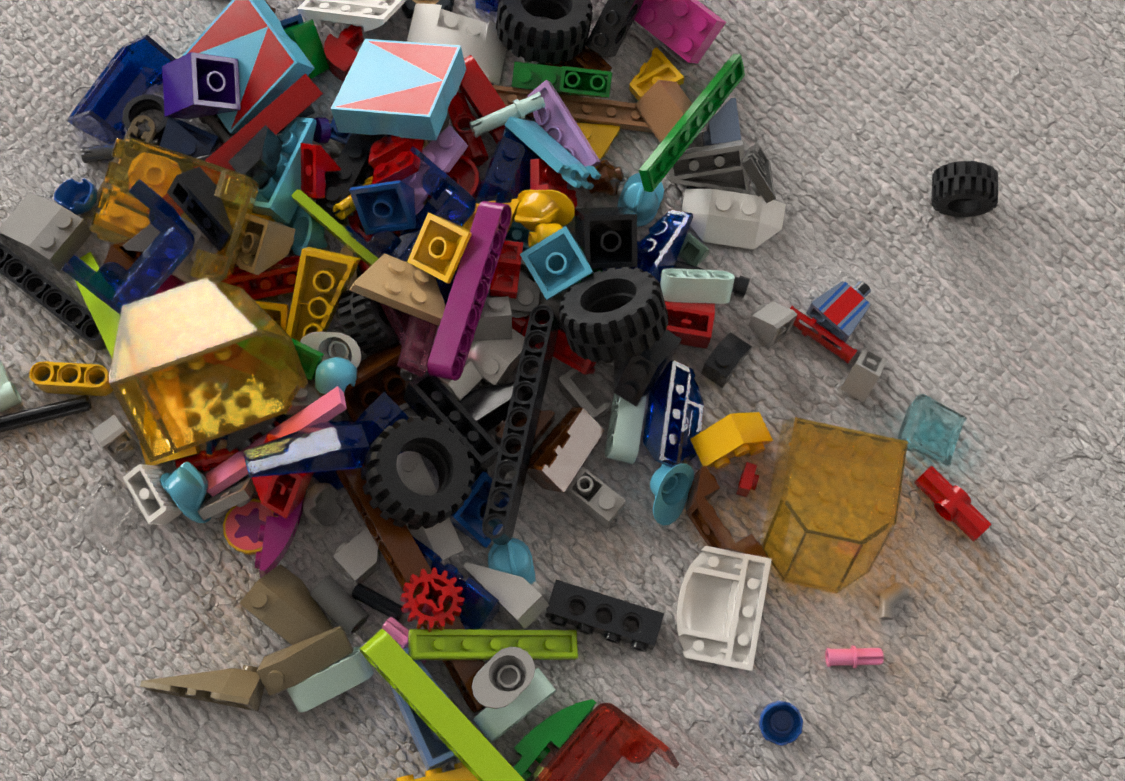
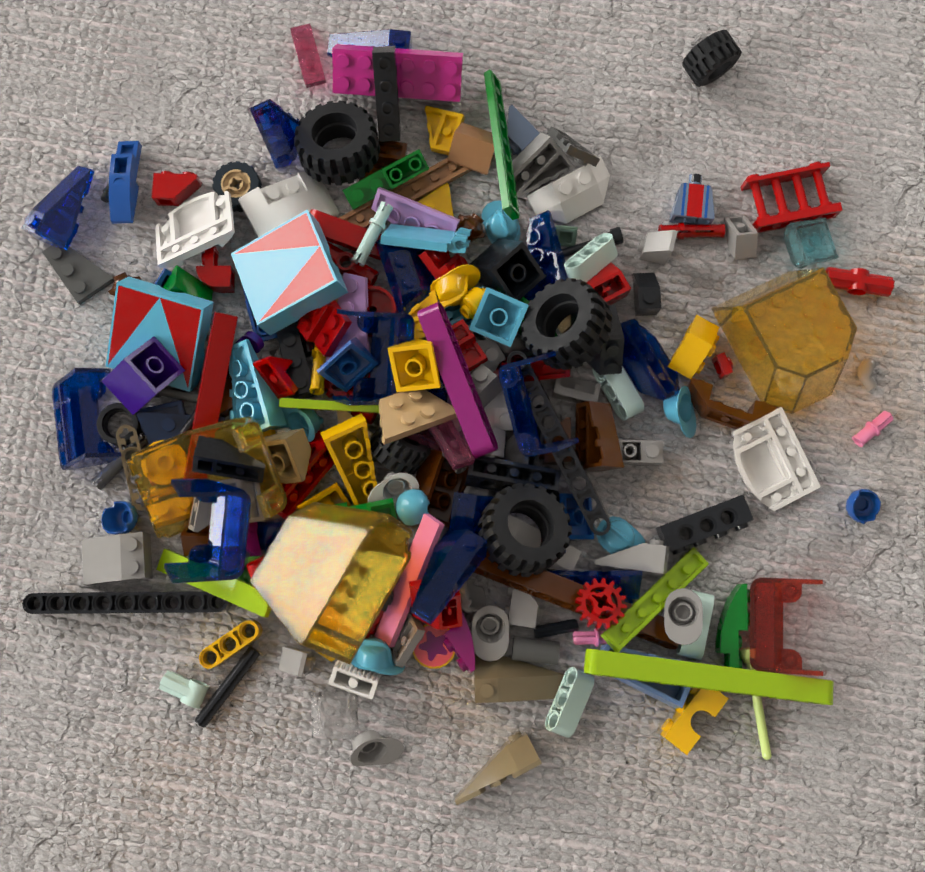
camera: 35 degrees left, 10 degrees up
(112, 575) = (373, 749): none -> light grey piece
(259, 156) = (231, 396): black slope -> none
(303, 660) = (544, 706): dark tan slope -> none
(309, 551) = (490, 633): none -> light grey piece
(507, 354) = (521, 412): none -> clear blue windscreen
(902, 380) = (768, 223): none -> red fence

